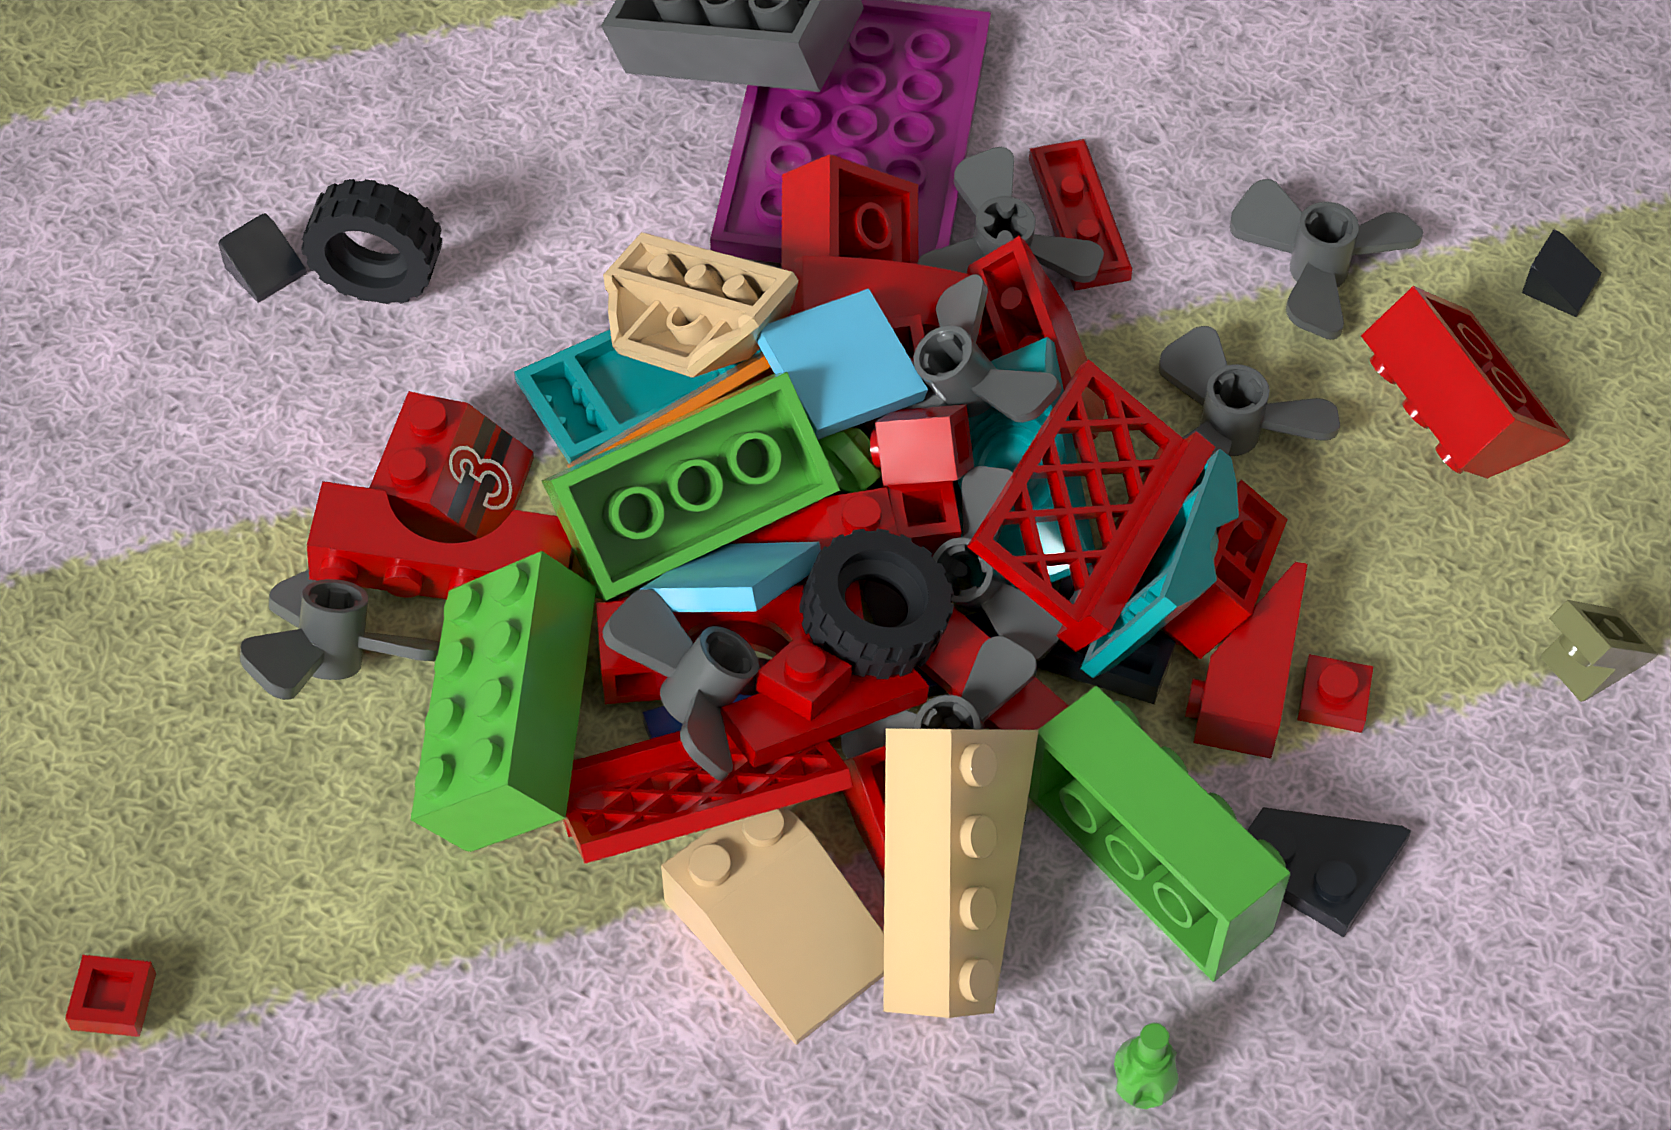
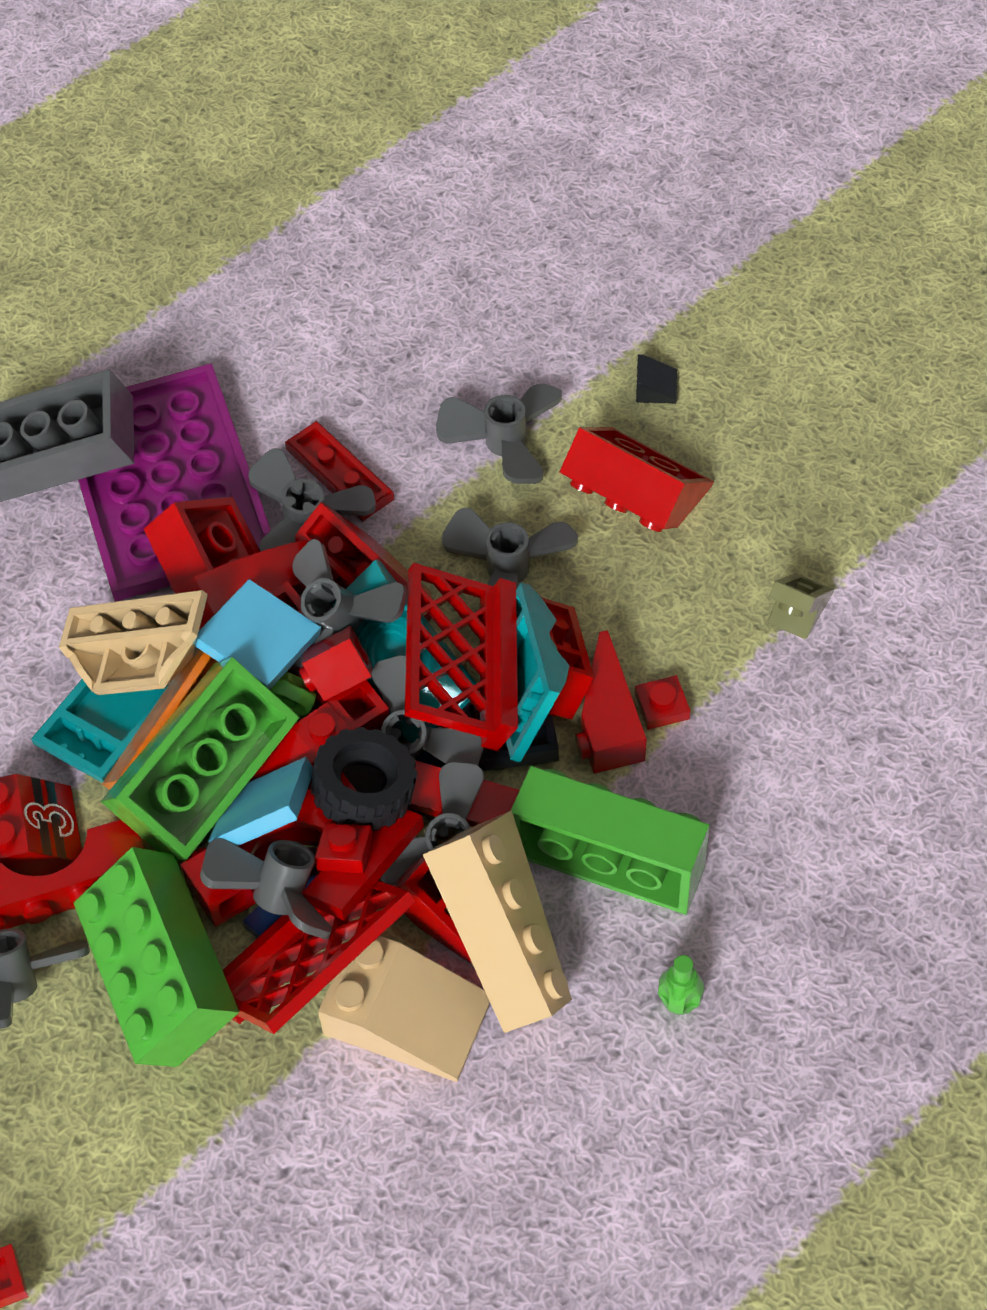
camera: 25 degrees left, 0 degrees up
(1330, 861) = (718, 801): black wing -> none

